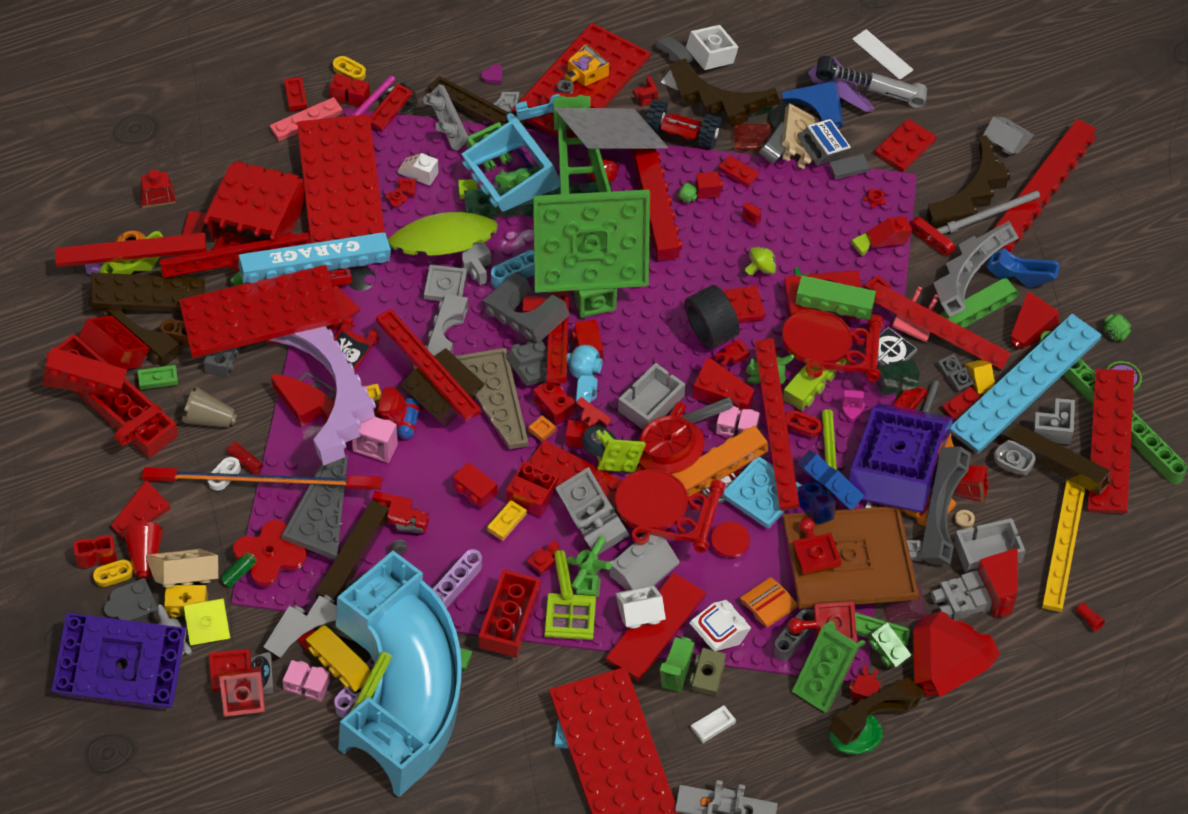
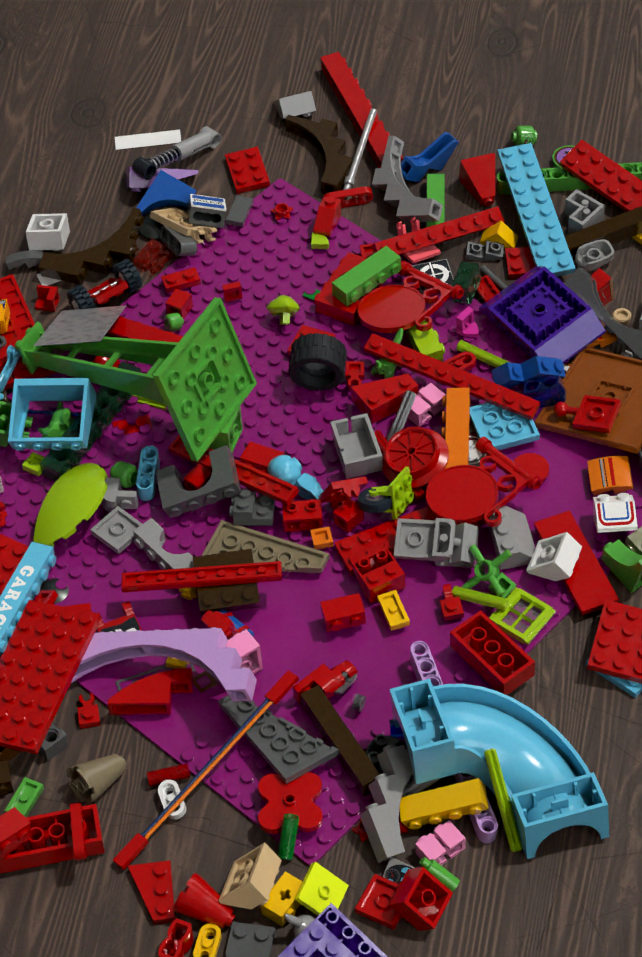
camera: 50 degrees left, 5 degrees down
(263, 371) = (88, 713): none -> red plate
(277, 693) = (440, 873): none -> bright green cylinder
(501, 252) = (126, 473): none -> bright green head

